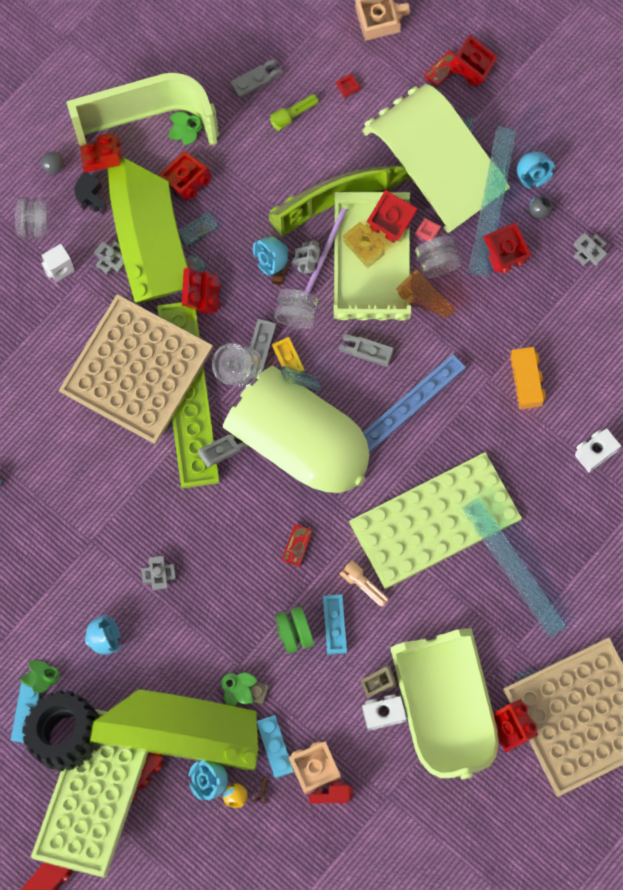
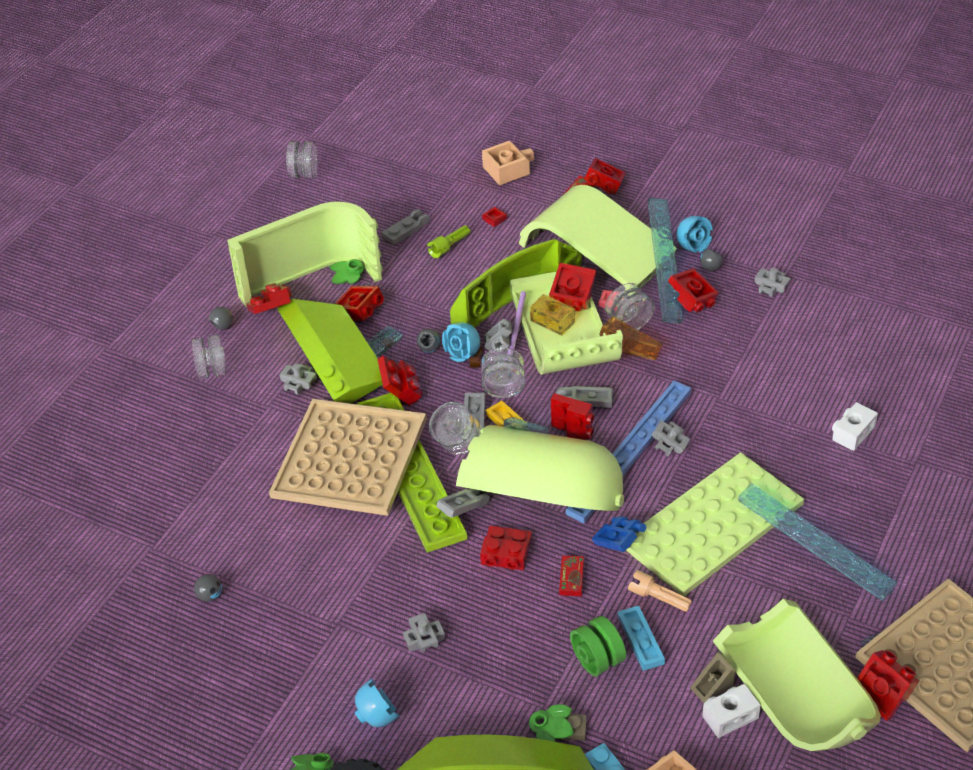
camera: 15 degrees left, 30 degrees down
(57, 263) = (244, 386): white brick -> none
(86, 191) = (263, 333): black brick -> none
(240, 244) = (428, 340): none -> dark grey piece
(249, 501) = (505, 547): none -> red plate
(343, 521) = (619, 534): none -> blue plate
(348, 382) = (572, 416): none -> red plate
(429, 421) = (671, 435): none -> light grey piece
(527, 378) = (756, 385): light orange brick -> none

